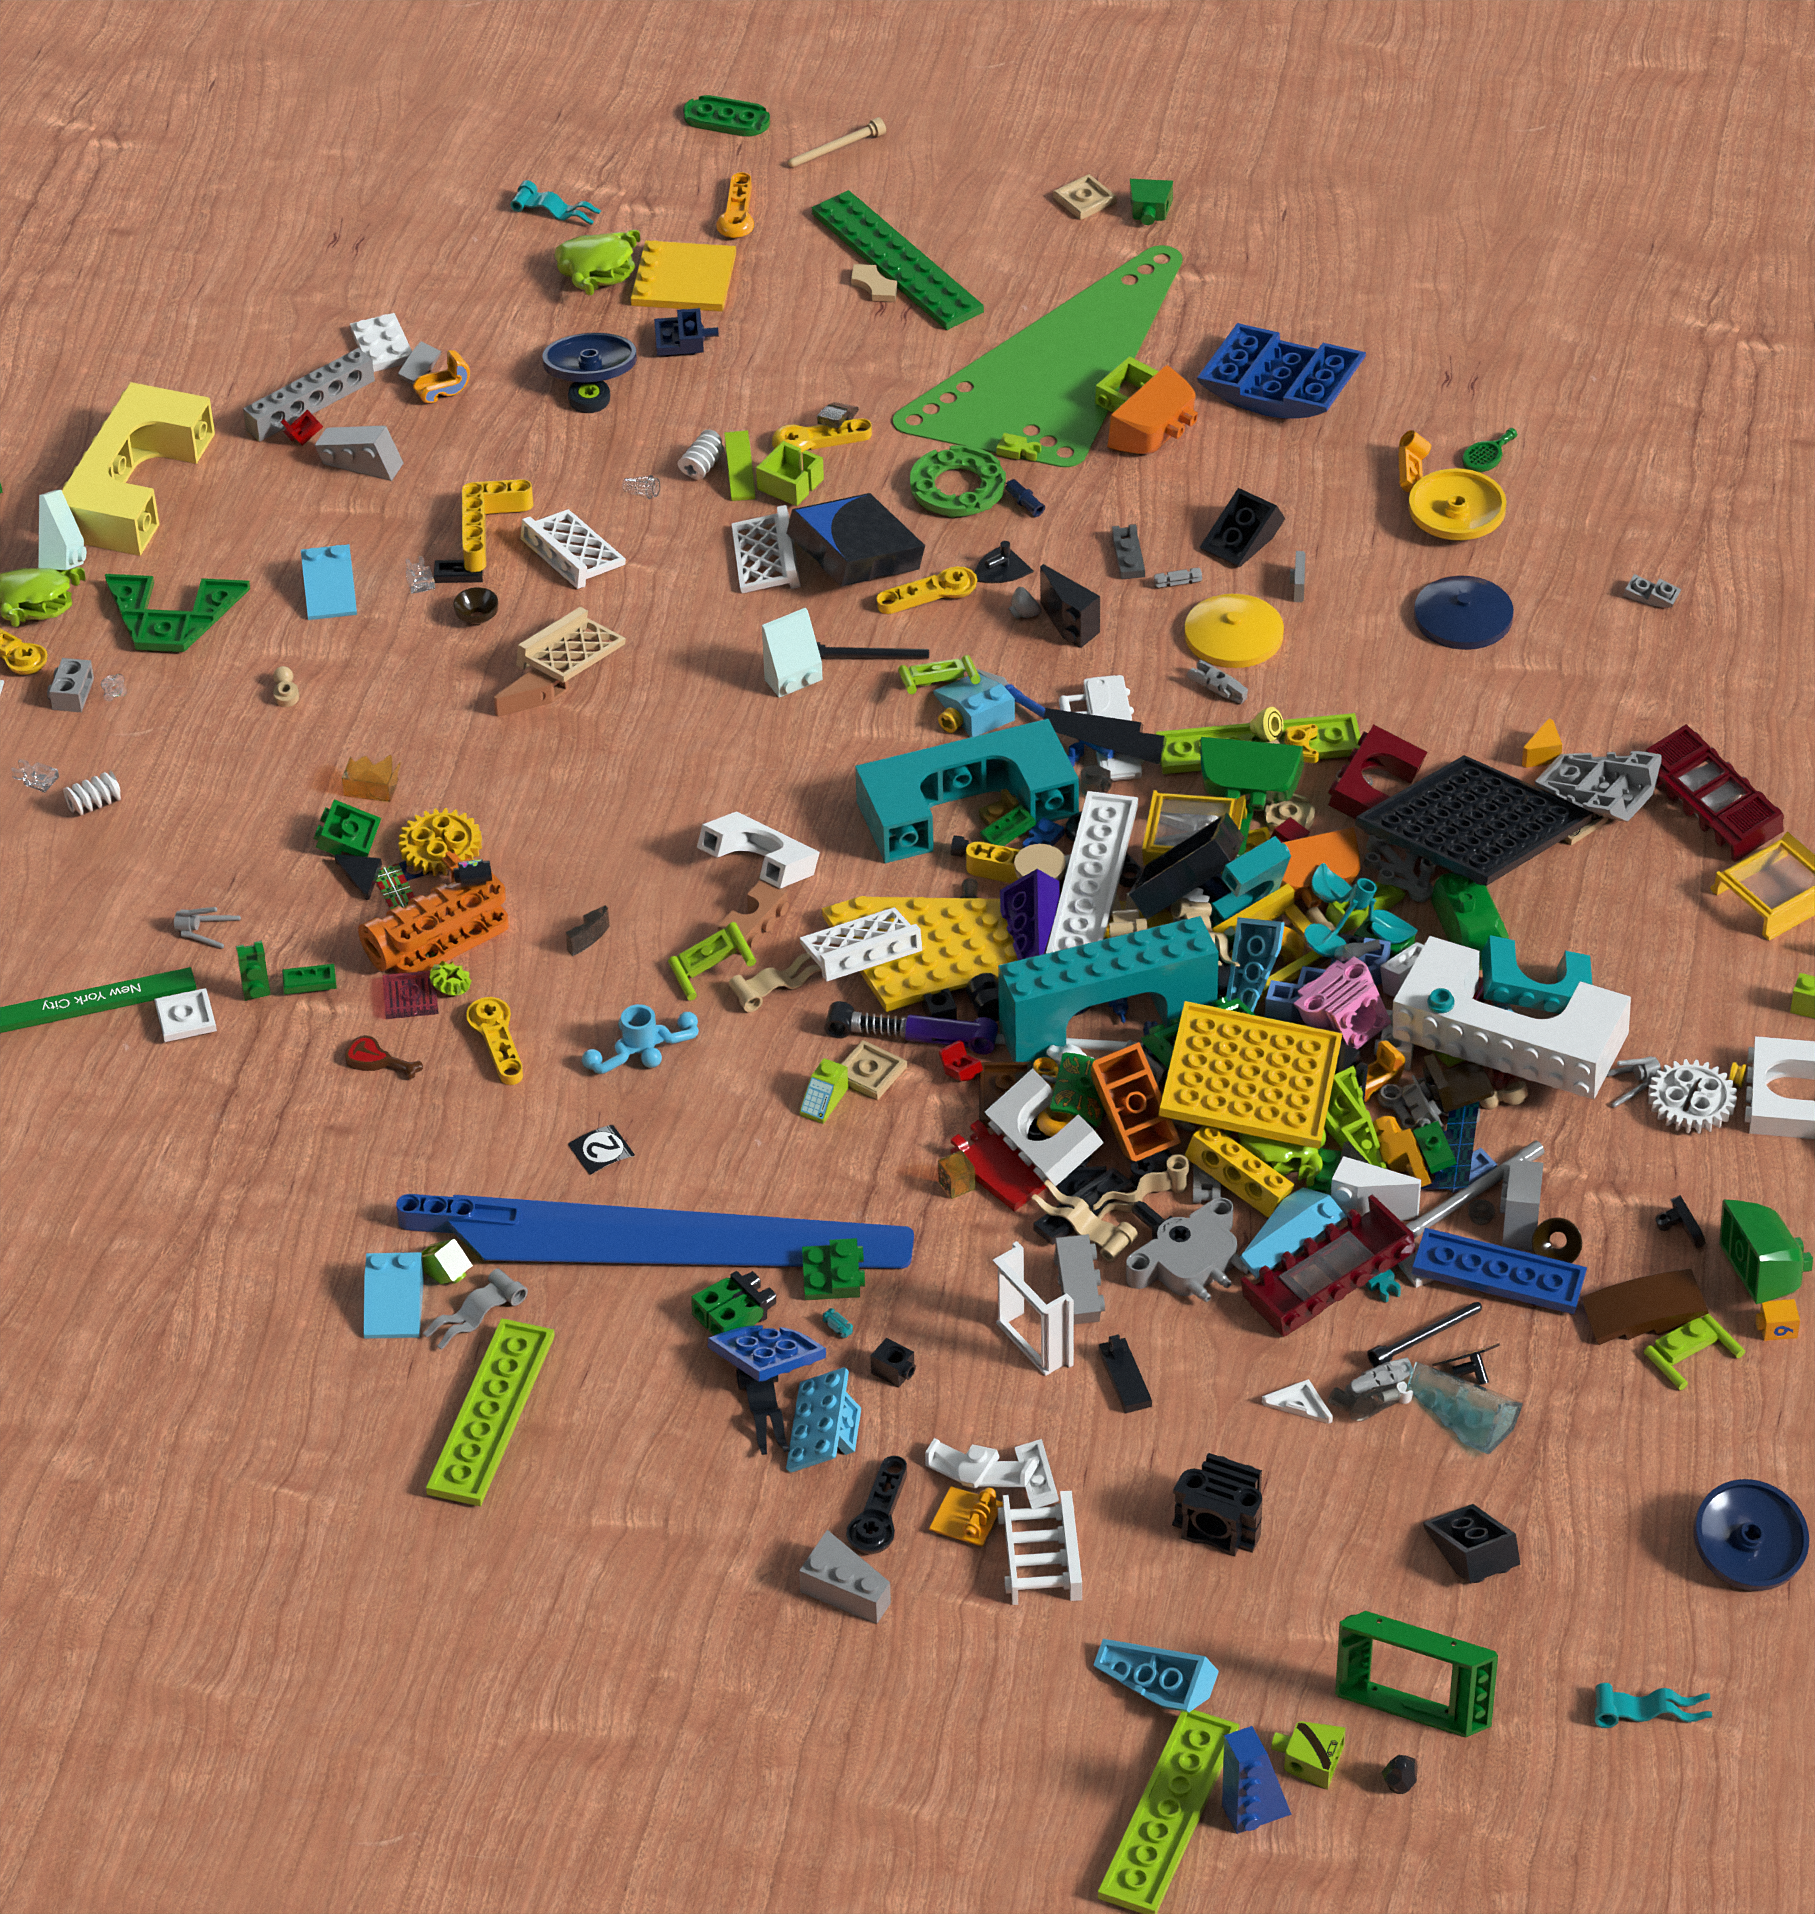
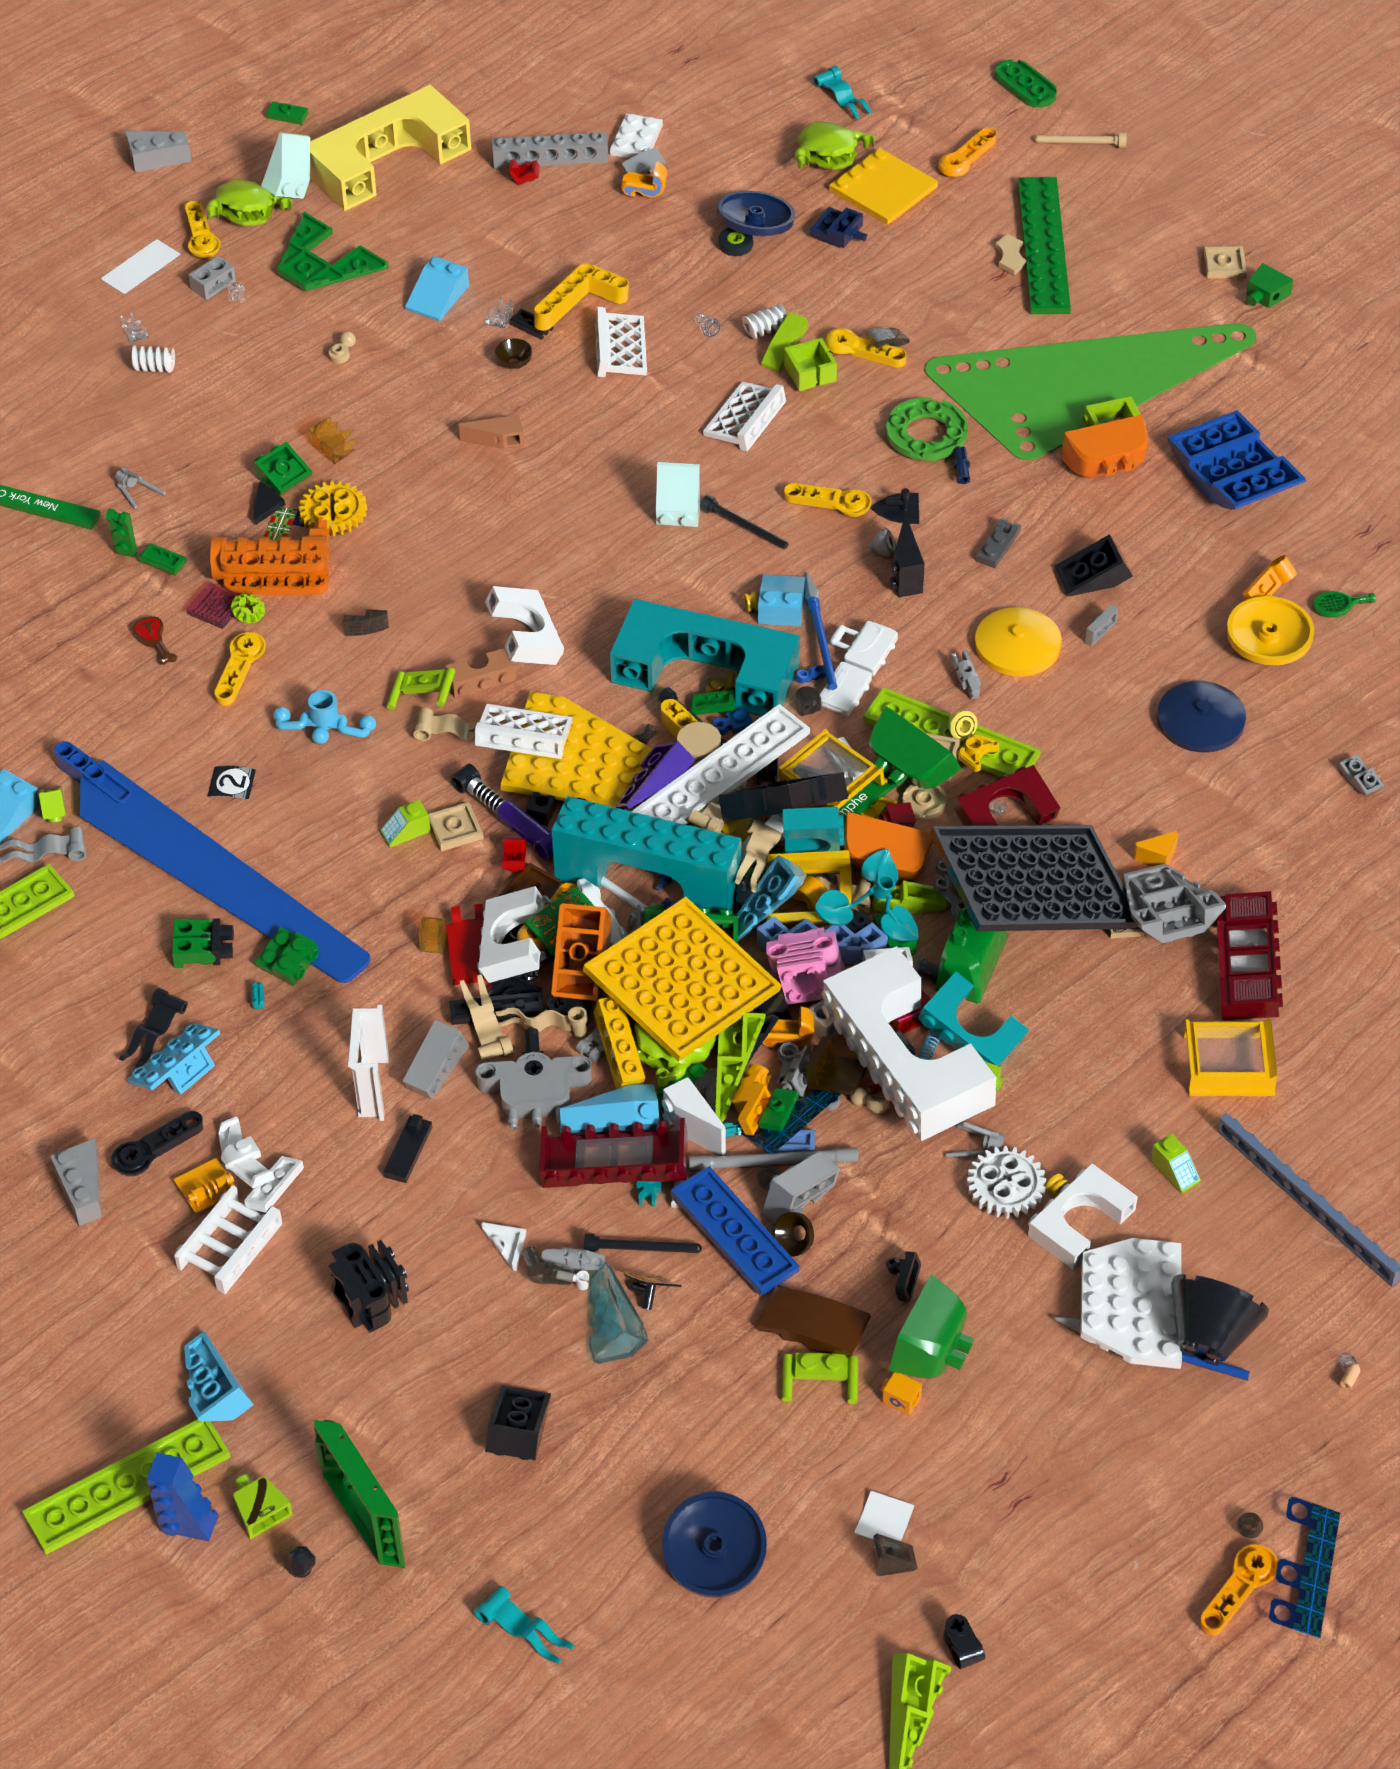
camera: 35 degrees right, 5 degrees up
(185, 1015) = (65, 542): white plate -> none
(360, 450) = (544, 206): light grey wedge -> none
(473, 873) = (306, 539): black brick -> none
(559, 637) = (541, 402): tan fence -> none
(766, 1351) = (186, 987): blue plate -> none
(855, 539) = (805, 434): black tile -> none
(892, 1362) = (262, 1045): black brick -> none
(937, 671) = (774, 561): lime plate -> none
(1017, 446) = (993, 423): lime plate -> none
(1110, 733) = (842, 670): black wedge -> none
(1178, 577) = (1015, 581): light grey axle -> none
(1347, 951) = (846, 927): dark grey piece -> none
(1440, 1001) = (852, 999): teal plate -> none

